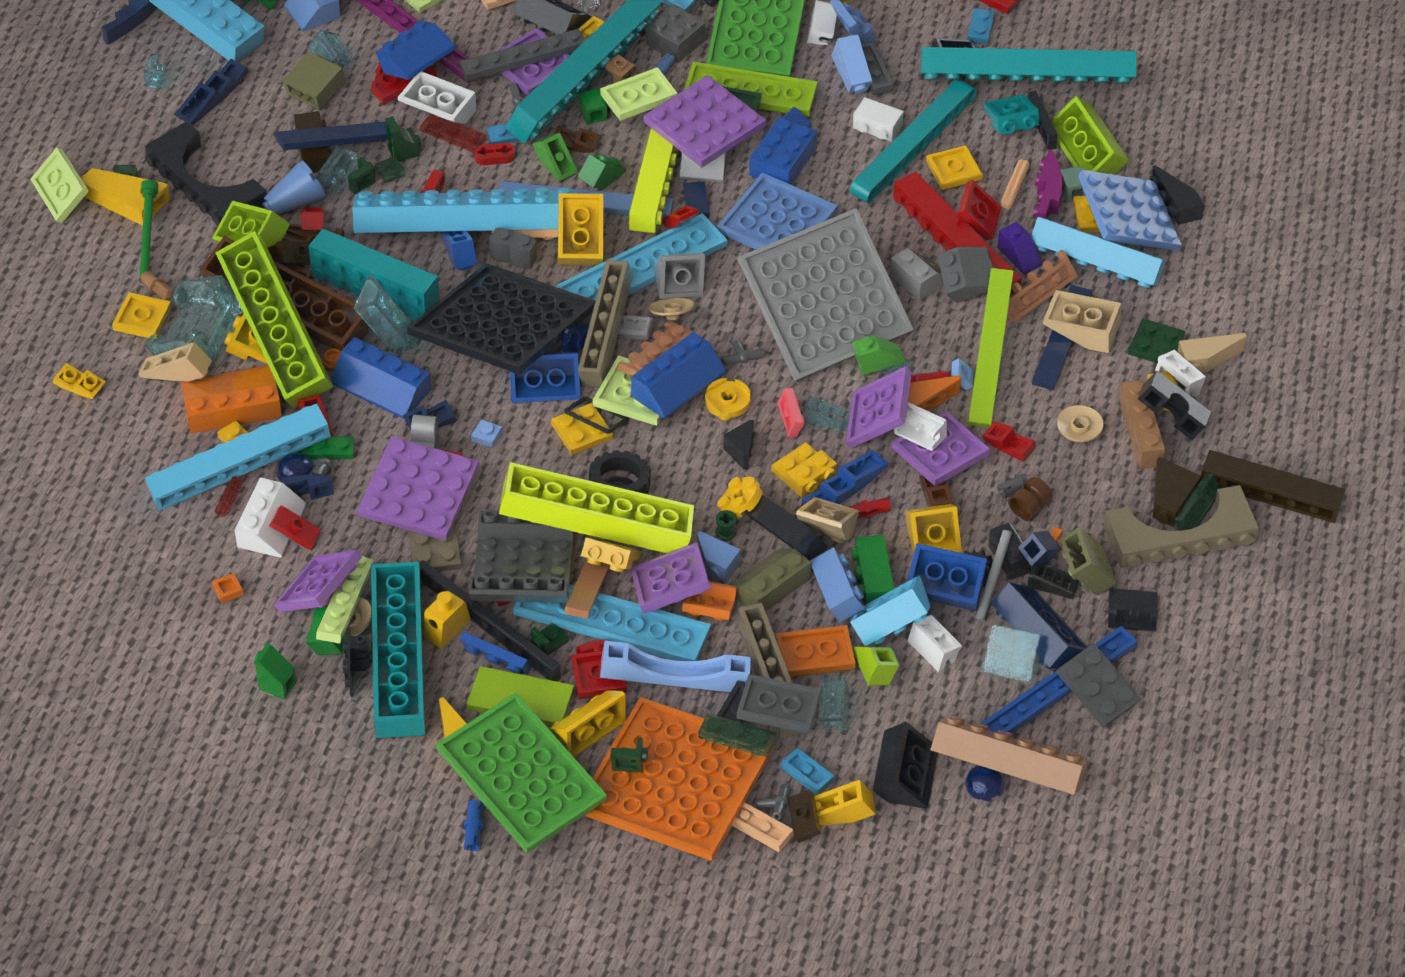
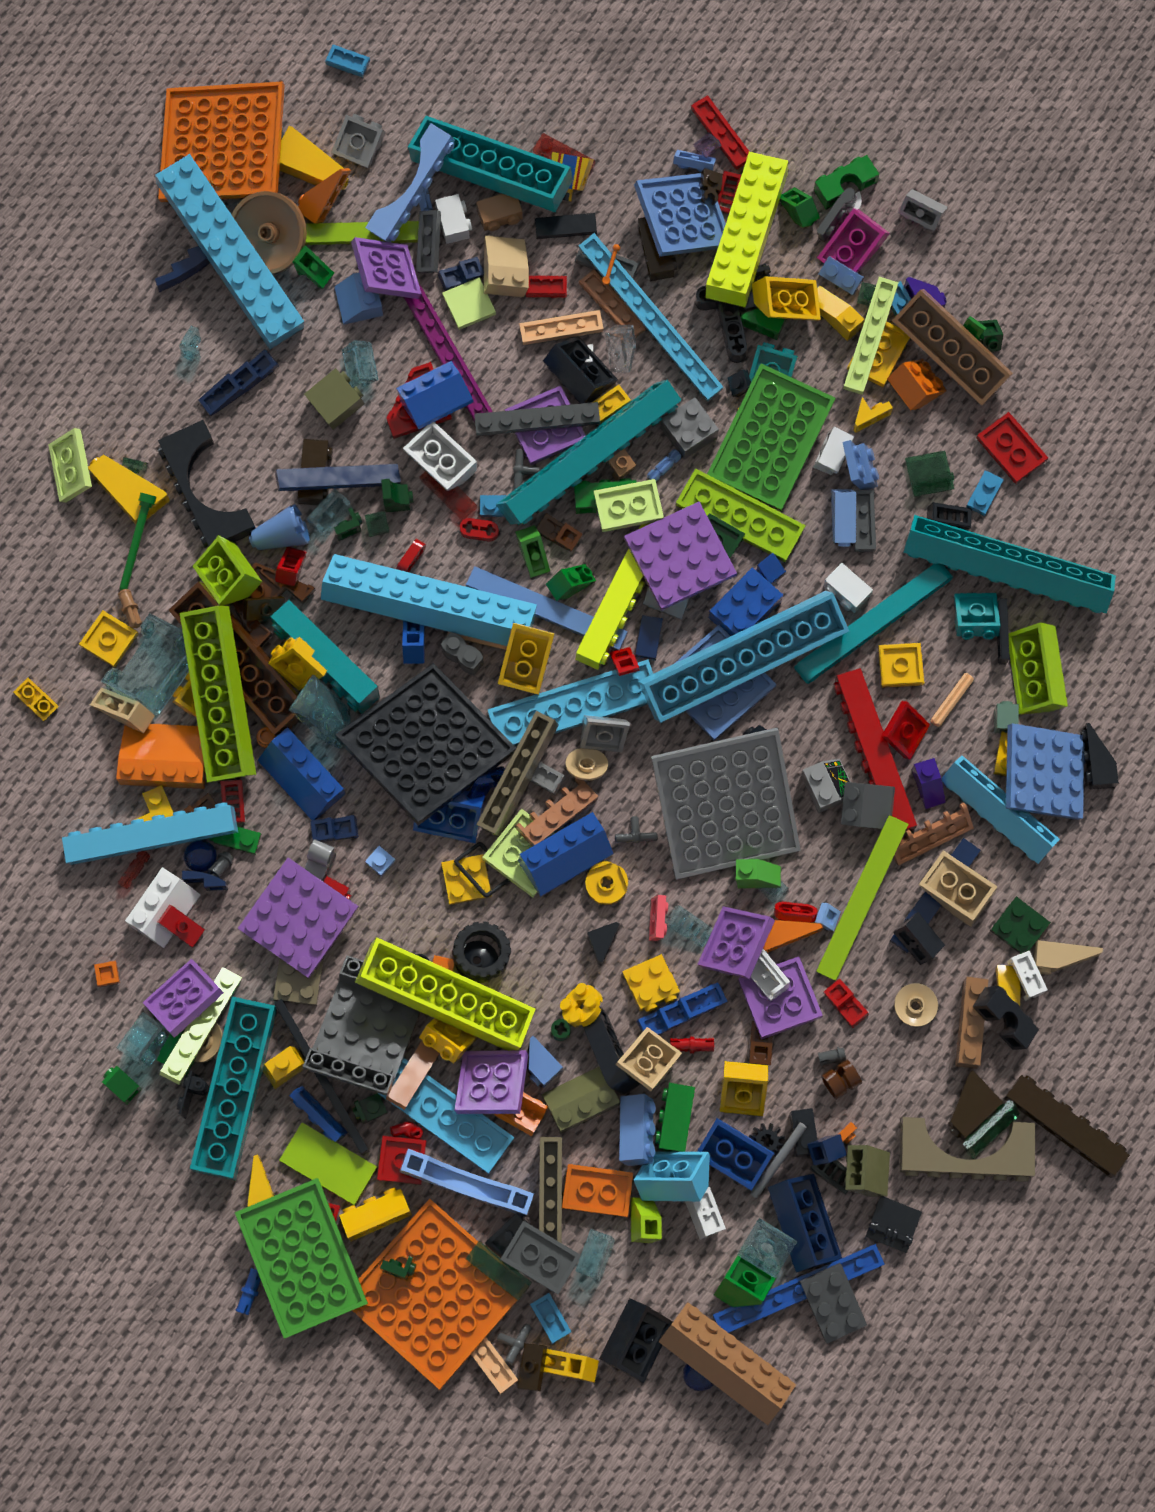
camera: 15 degrees right, 25 degrees up
(287, 625) = (143, 1040): none -> clear light blue brick
(347, 272) = (296, 662): none -> yellow plate
(796, 180) = (743, 656): none -> medium azure brick
(922, 22) = (929, 473): none -> clear green hinge
(996, 692) = (744, 1284): none -> green slope
(1049, 186) = (984, 711): magenta slope -> none
(1060, 368) = (919, 938): none -> black hinge

